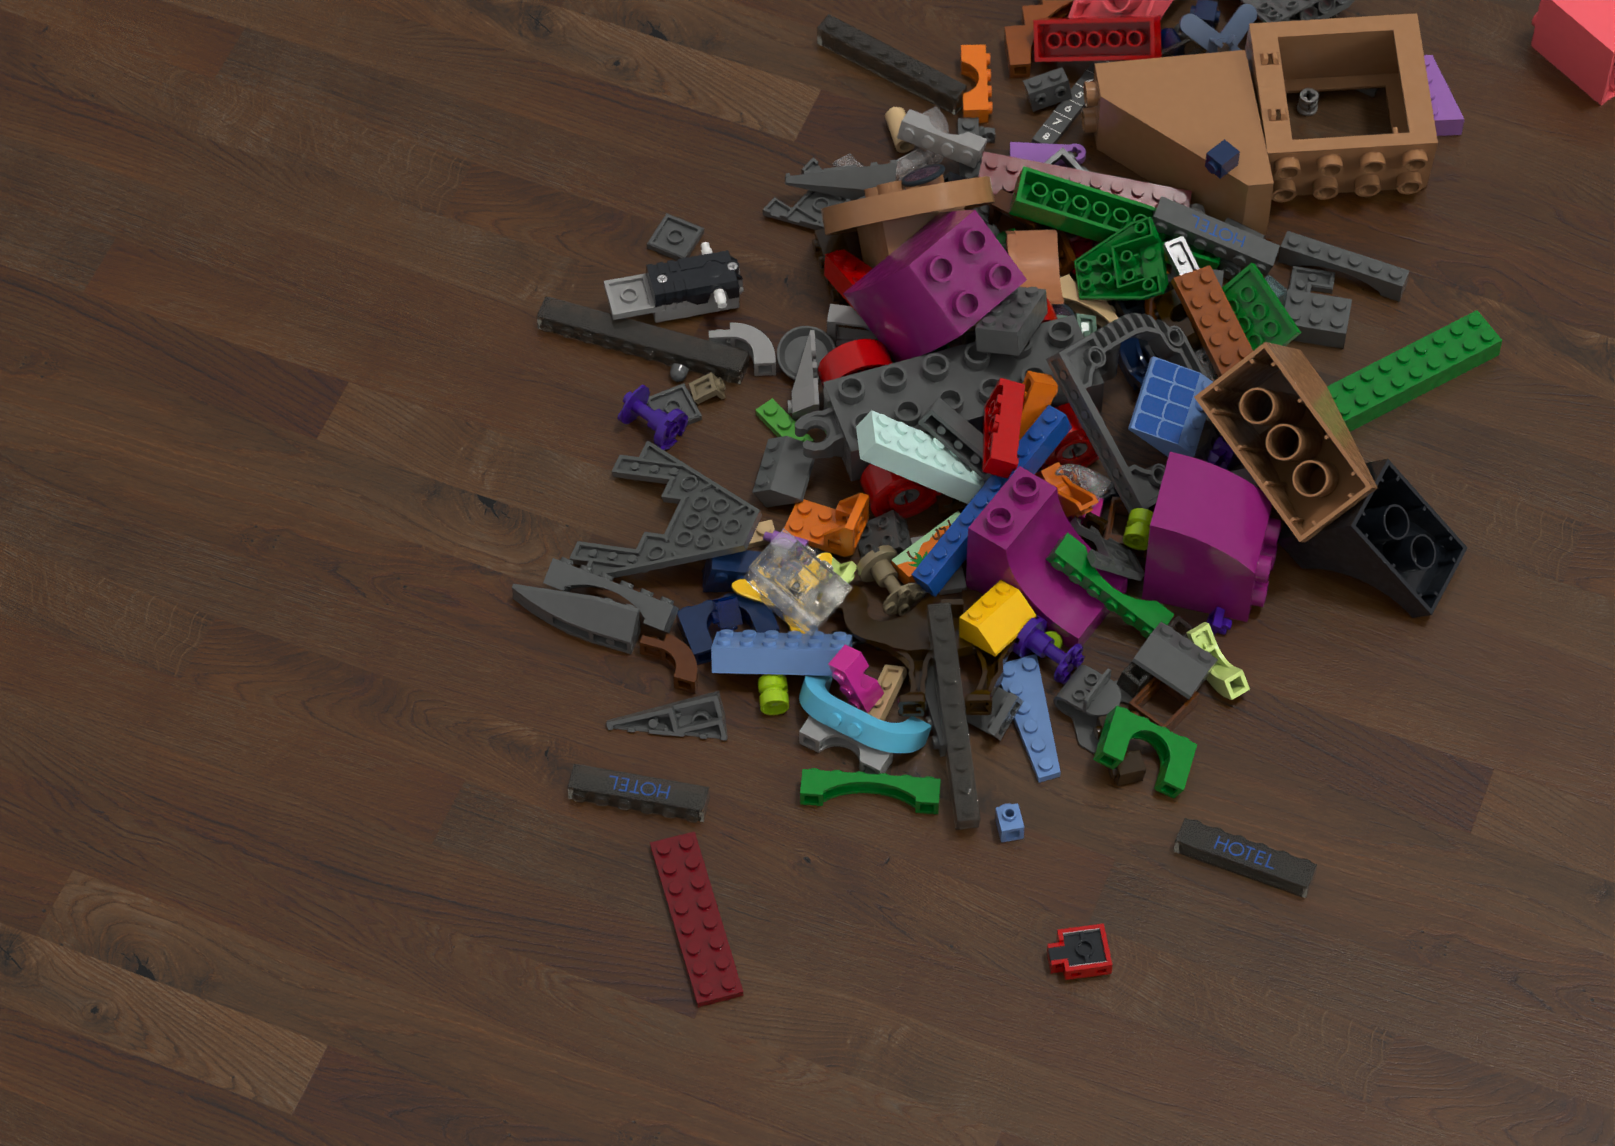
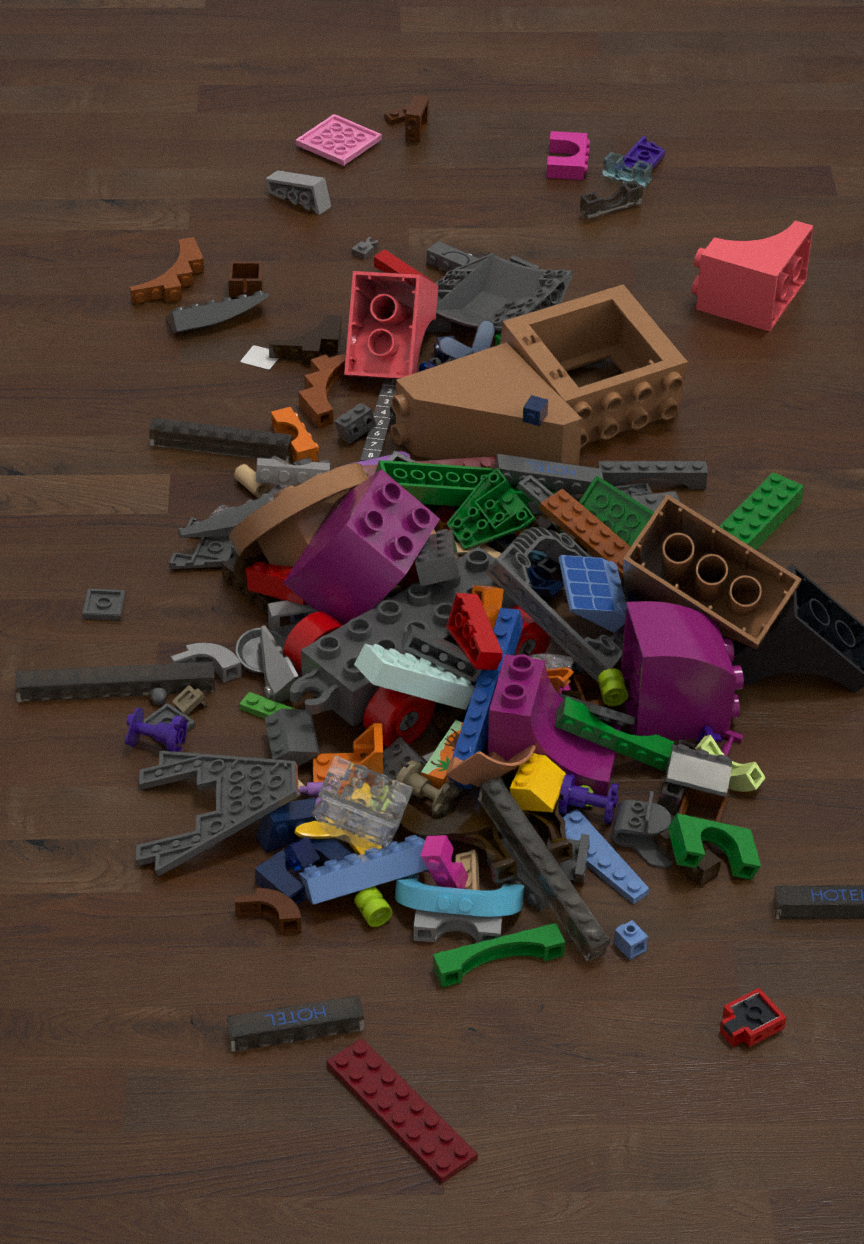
camera: 25 degrees left, 15 degrees down
(583, 616) = (171, 898): dark grey wedge -> none
(656, 612) = (144, 870): dark grey arch -> none
(678, 287) = (130, 631): piece -> none
(696, 716) = (311, 948): dark grey wedge -> none
(923, 175) = (311, 474): wheel -> none
(962, 585) = (483, 768): none -> nougat panel
(1097, 38) = (375, 375): red brick -> none
(1235, 636) = (731, 736): none -> magenta piece

